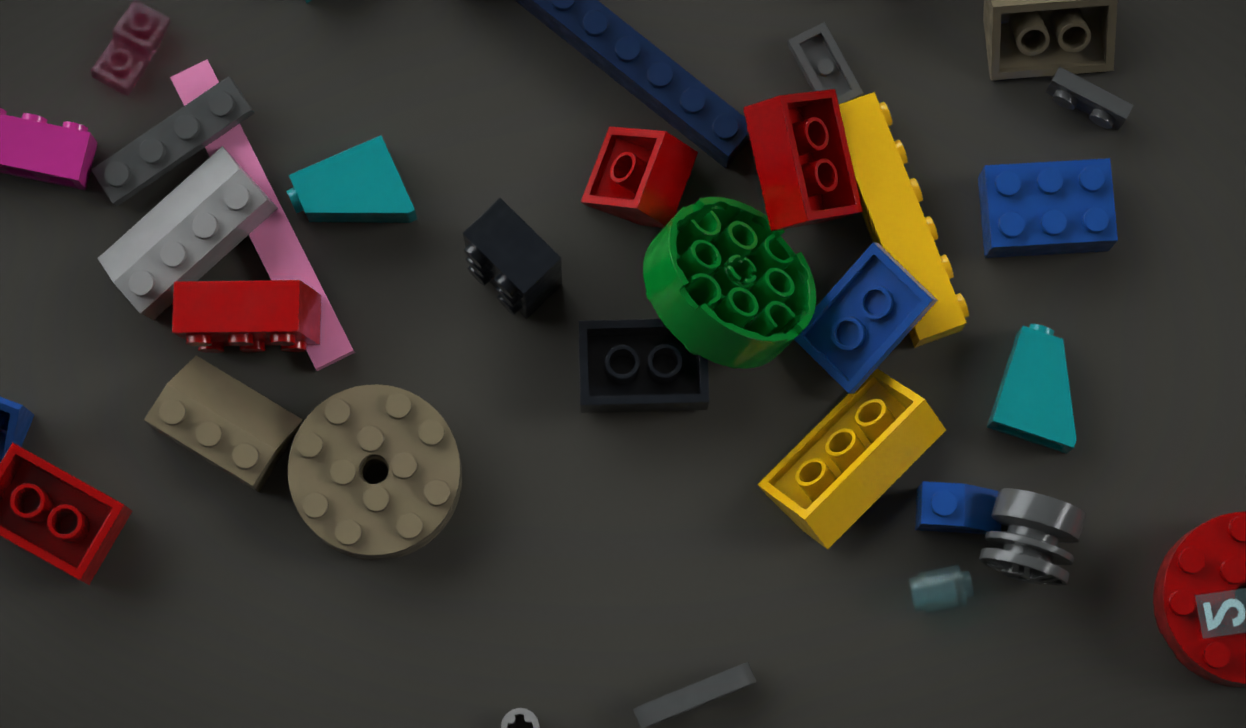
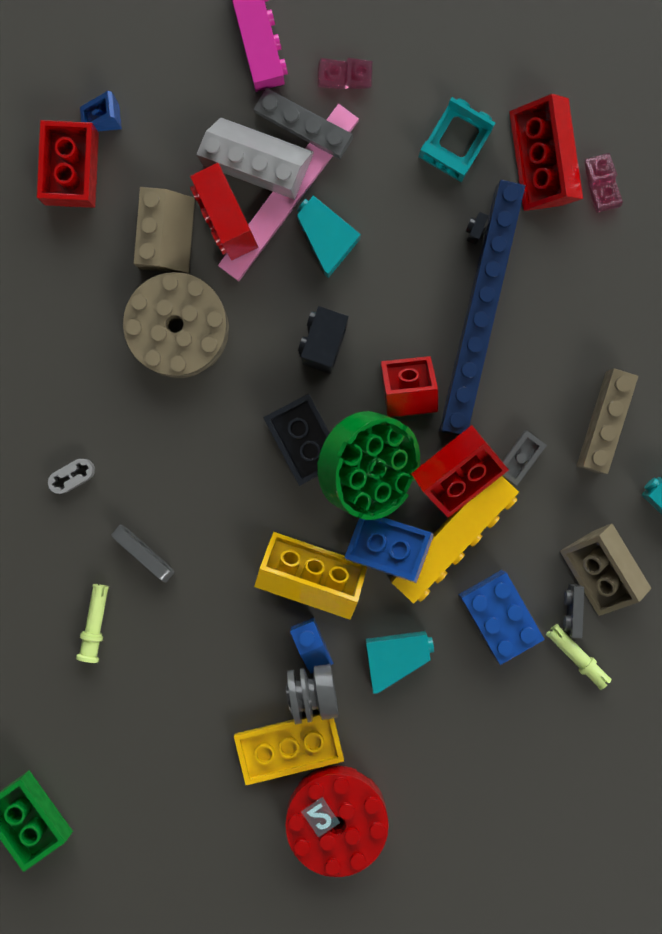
camera: 70 degrees right, 10 degrees up
(940, 589) = (263, 656): clear light blue brick -> none
(1099, 621) = (287, 748): none -> yellow plate
(1149, 130) = (586, 664): none -> yellowish green pin

